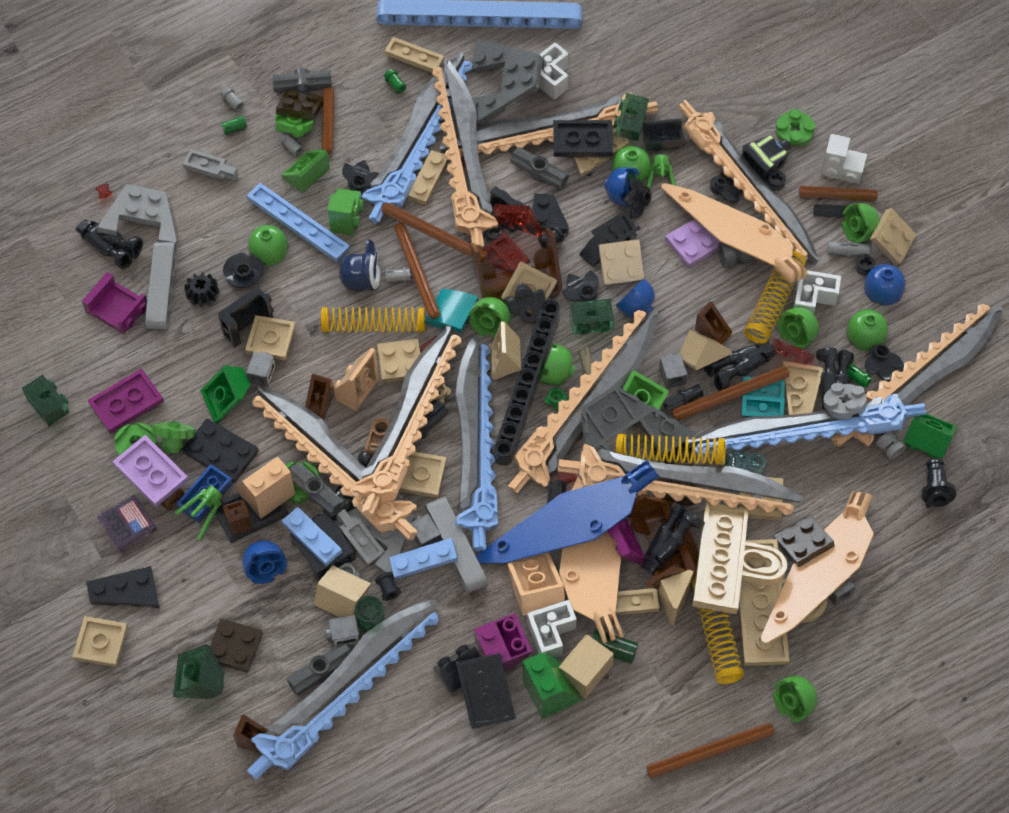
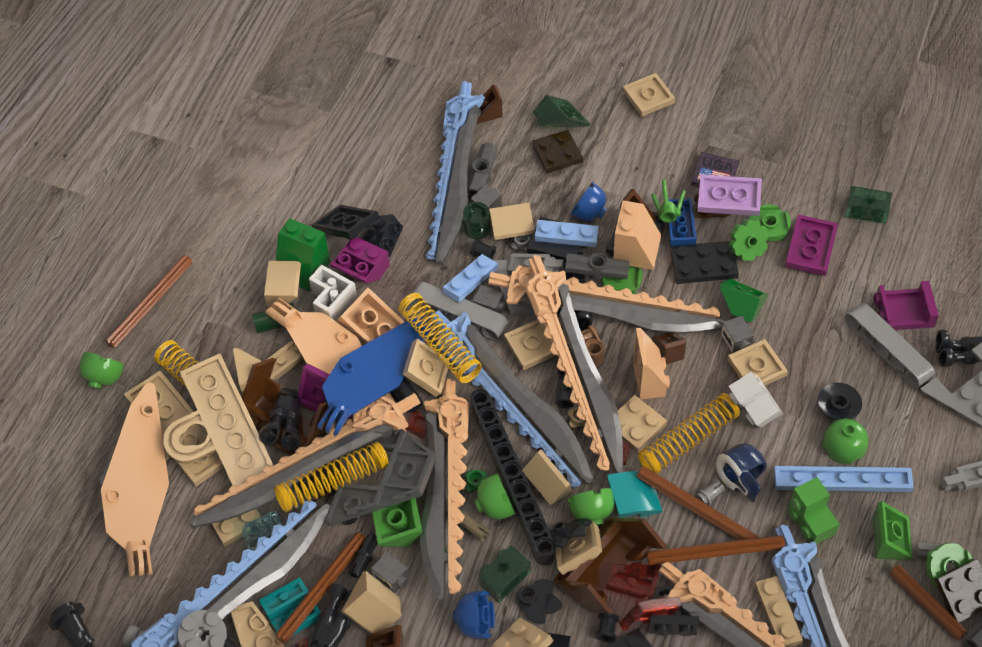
camera: 145 degrees right, 5 degrees down
(126, 588) = (668, 136): black wing -> none
(201, 289) = (854, 363): black gear -> none
(242, 313) = (793, 344): black panel -> none
(304, 304) = (757, 400): none -> white brick
(358, 174) = (840, 567): black plate -> none
(497, 552) = (416, 308): none -> yellow piece
(525, 502) = (425, 368): none -> tan plate
(804, 540) = (168, 496): plate -> none

